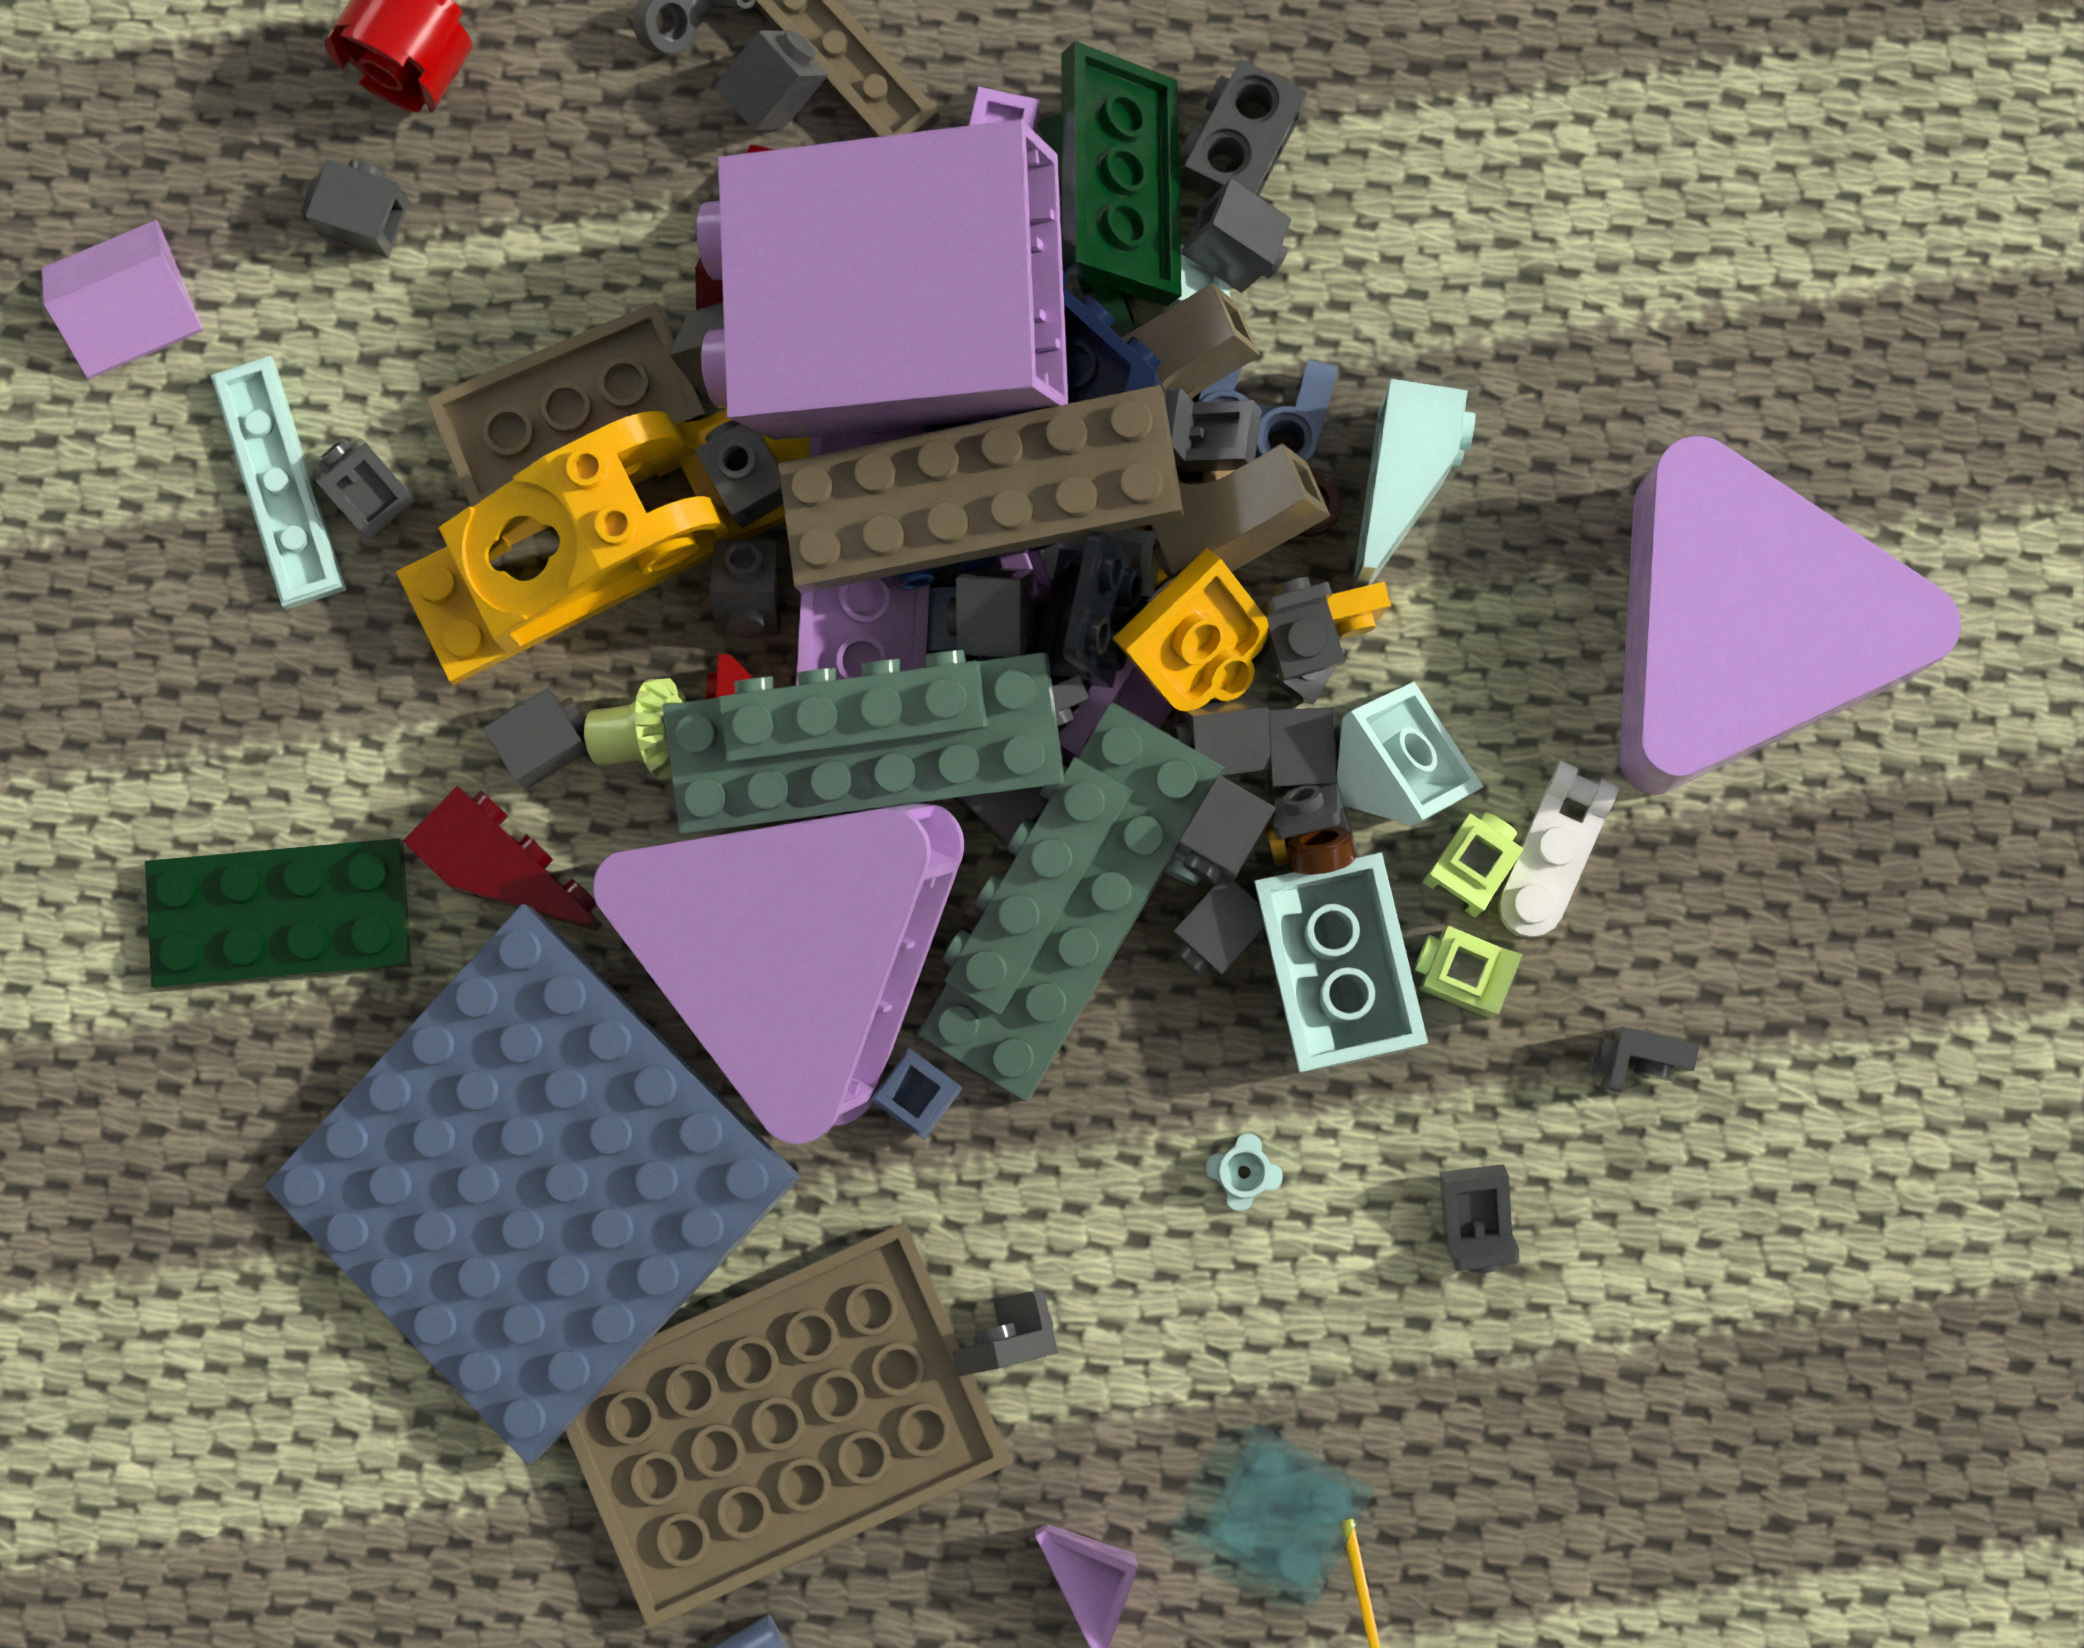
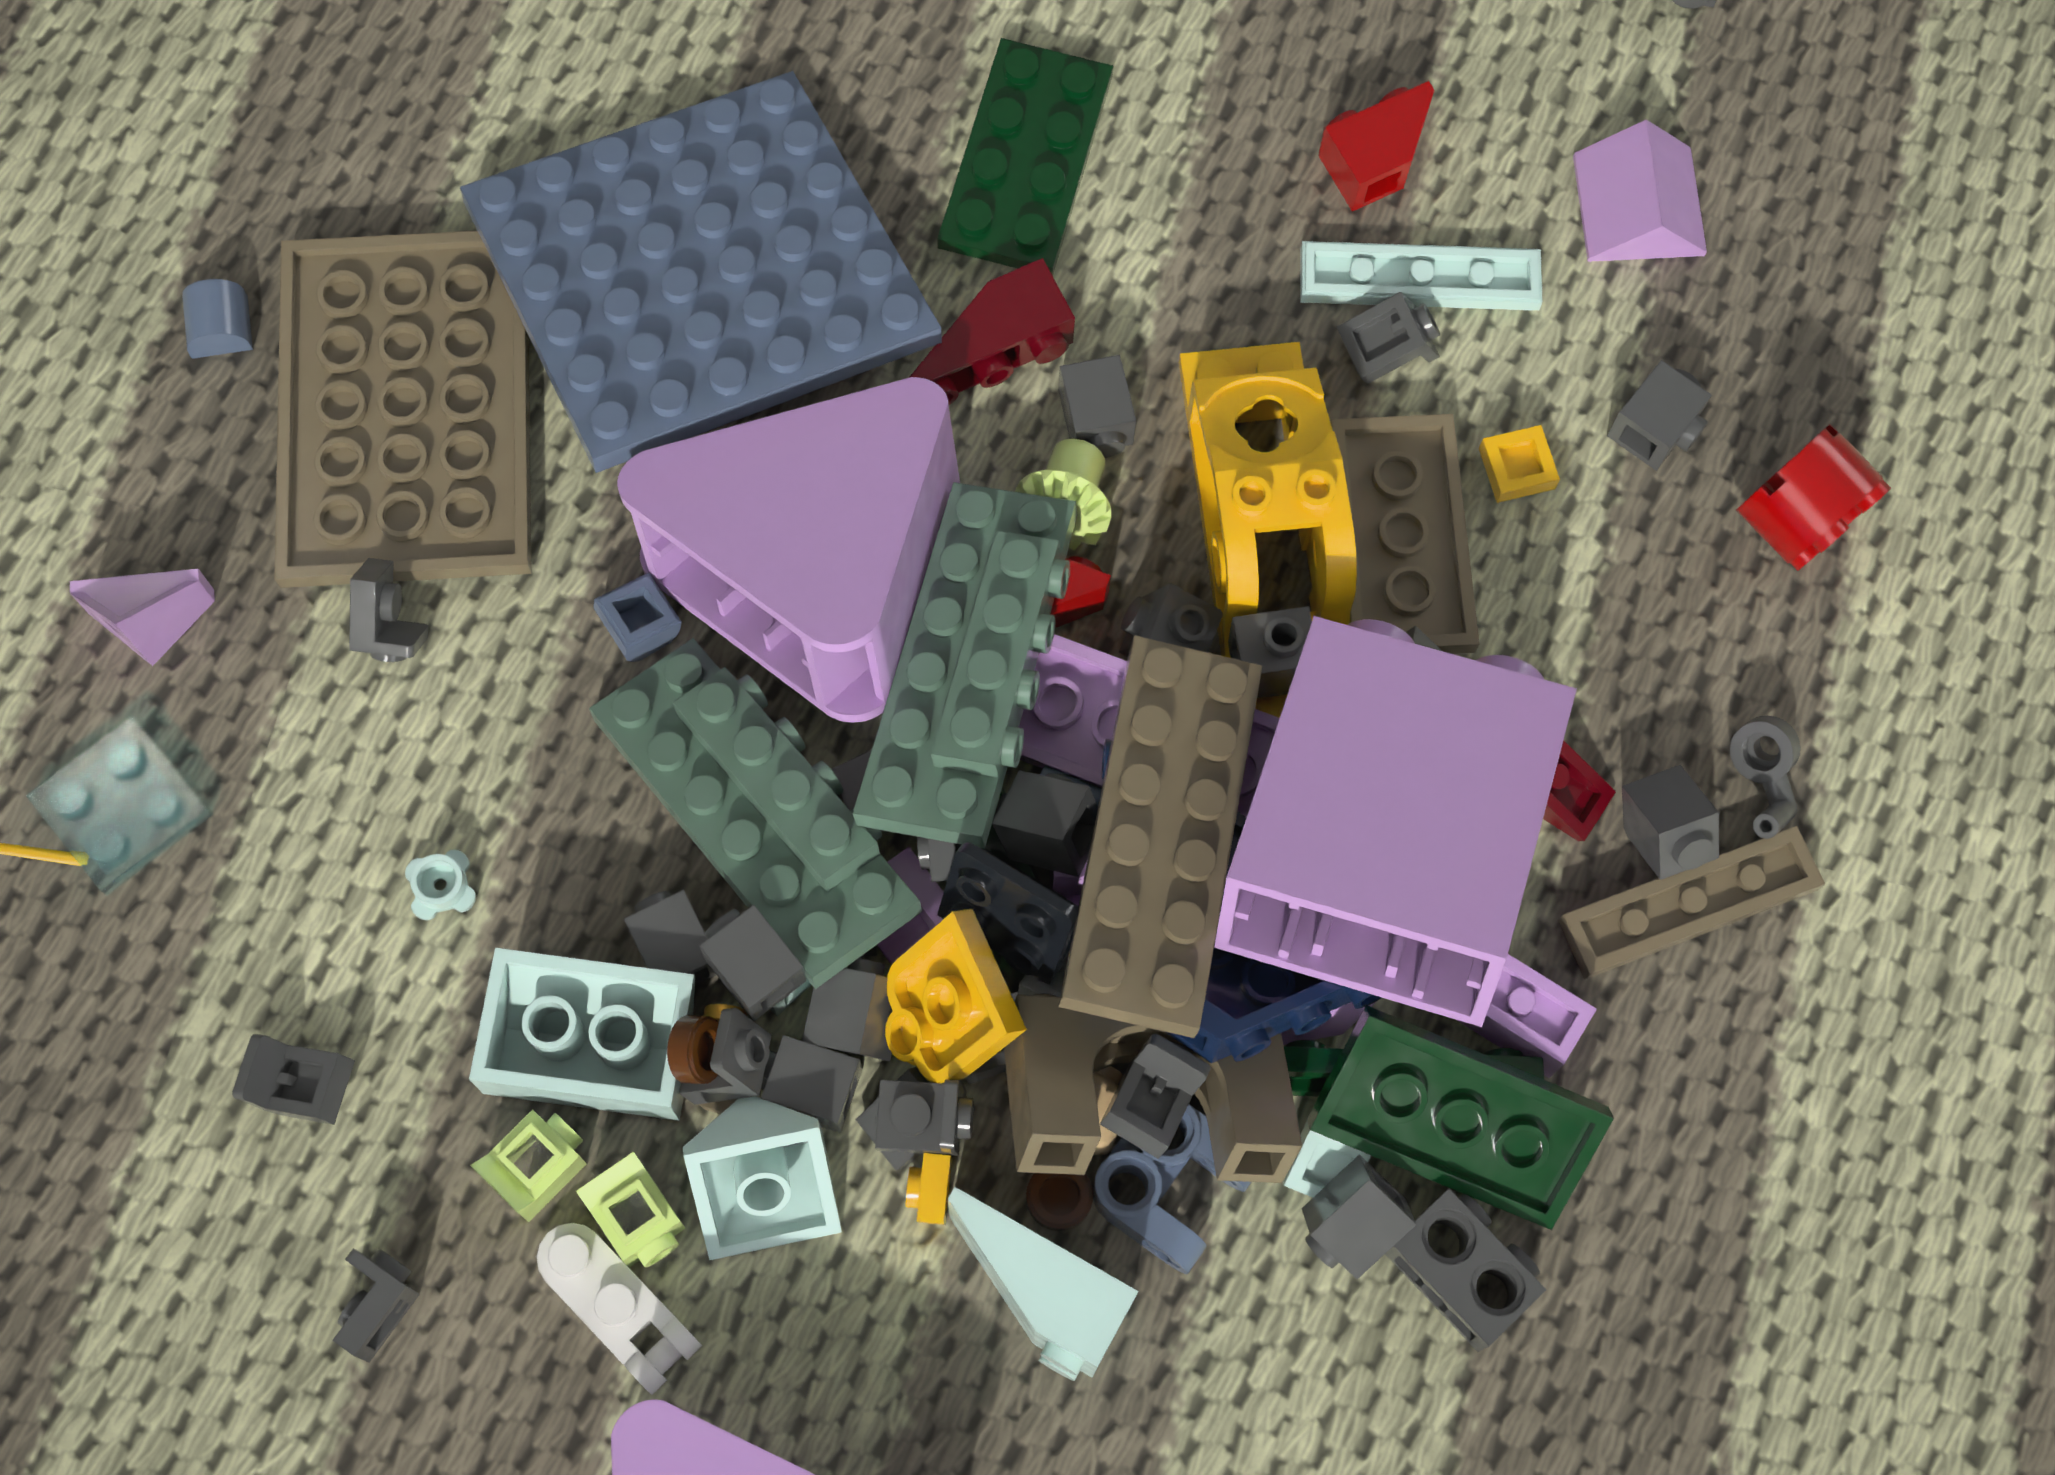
camera: 105 degrees right, 10 degrees down
(153, 560) = (1374, 148): none -> red slope
(453, 324) = (1519, 463): none -> yellow plate

